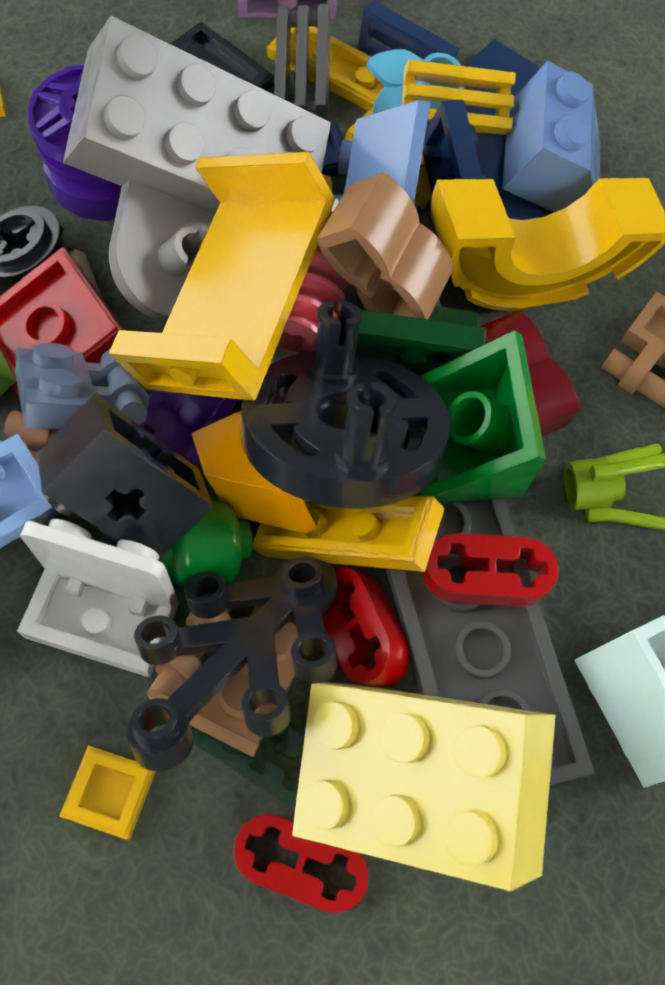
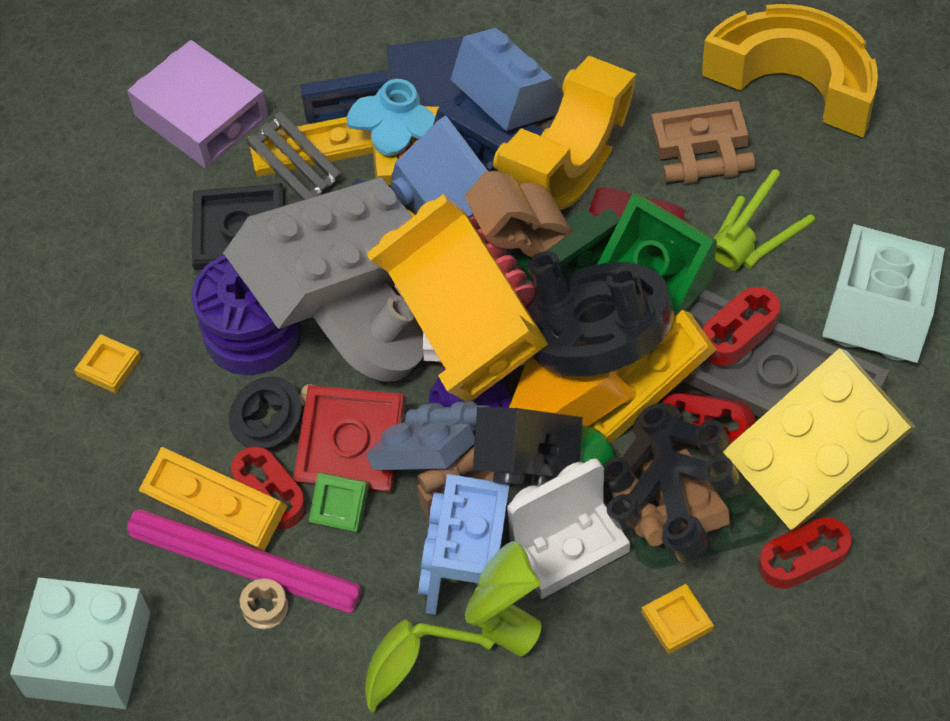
camera: 35 degrees left, 10 degrees down
(468, 77) = (451, 82): yellow tile -> none

